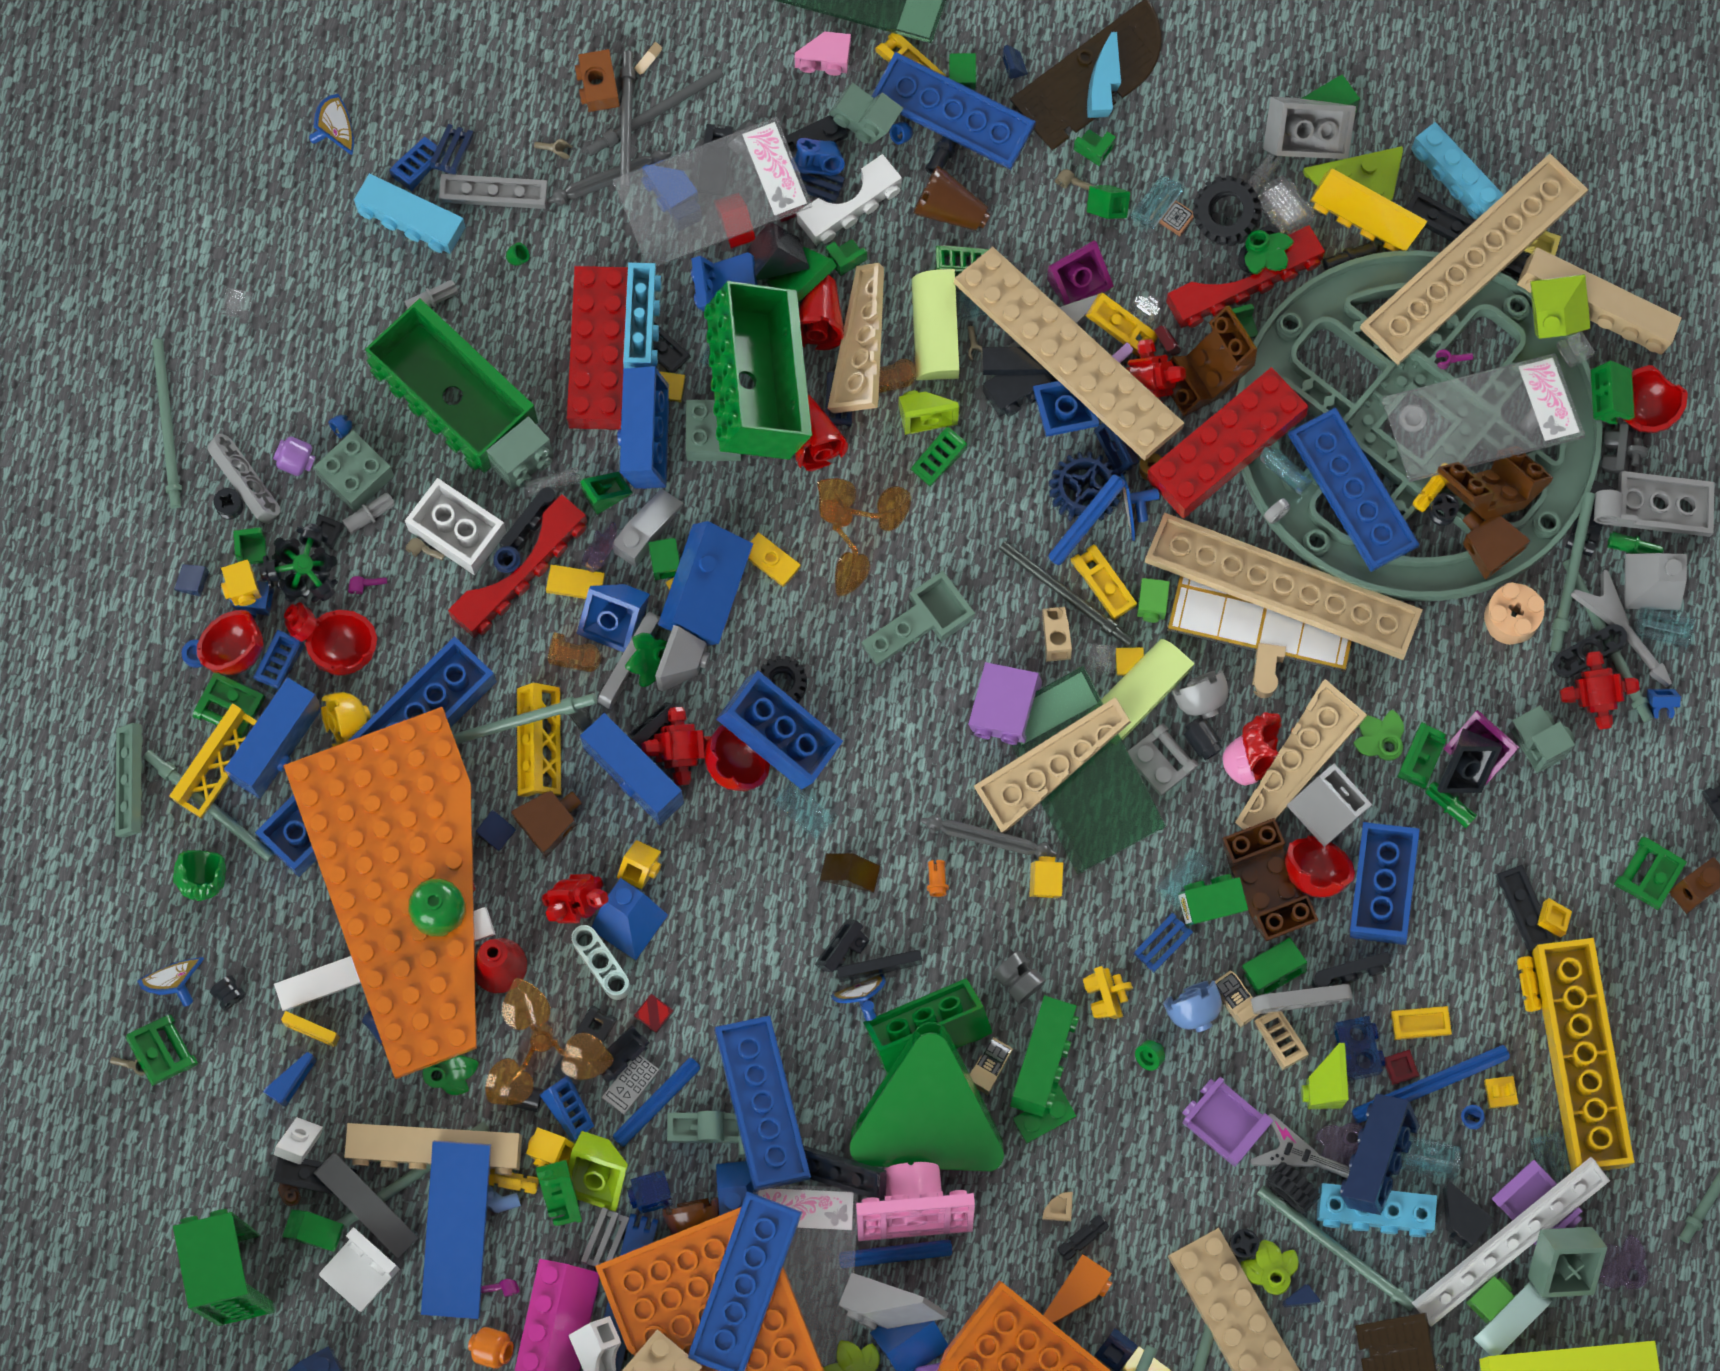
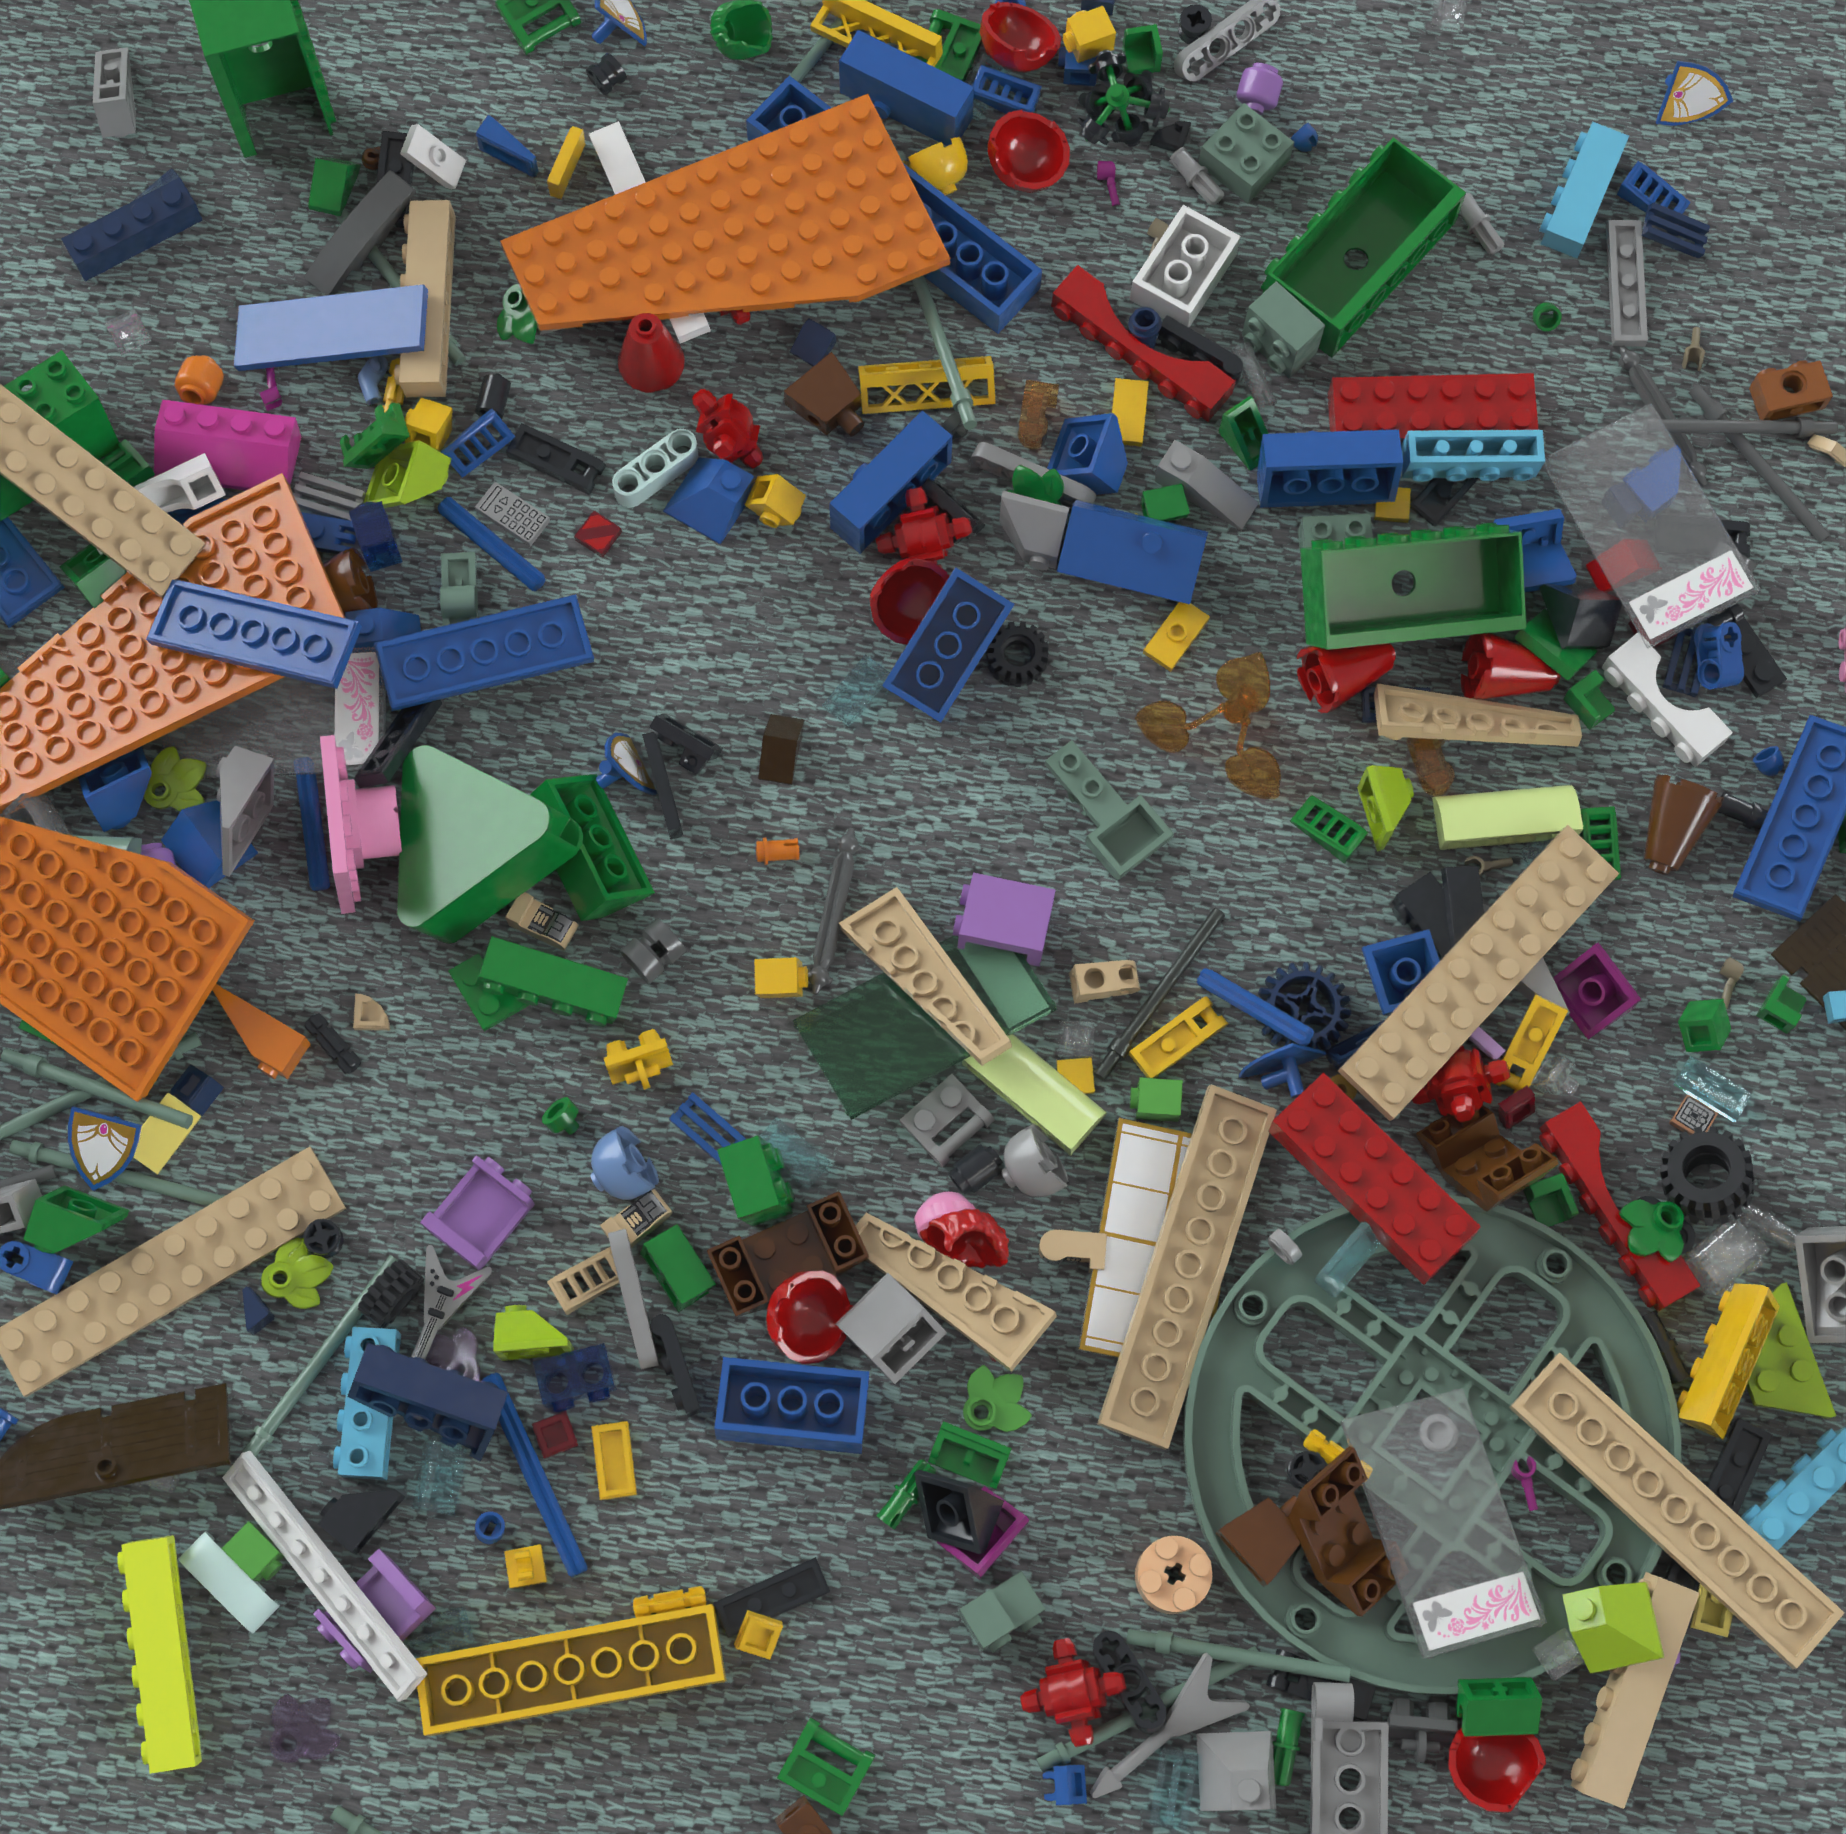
camera: 85 degrees right, 0 degrees up
(299, 621) = (1053, 107): red plate -> none
(359, 1271) = (290, 237): white bracket -> none
(436, 907) = (699, 264): green cylinder -> none
(528, 1007) = (577, 363): clear orange plant -> none
(600, 548) = (1161, 428): clear purple plate -> none
(625, 1048) = (545, 497): black hinge -> none
(865, 115) = (1785, 706): sand green brick -> none
(1353, 489) = (1326, 1350): blue tile -> none
(1567, 1262) = (293, 1645): sand green brick -> none

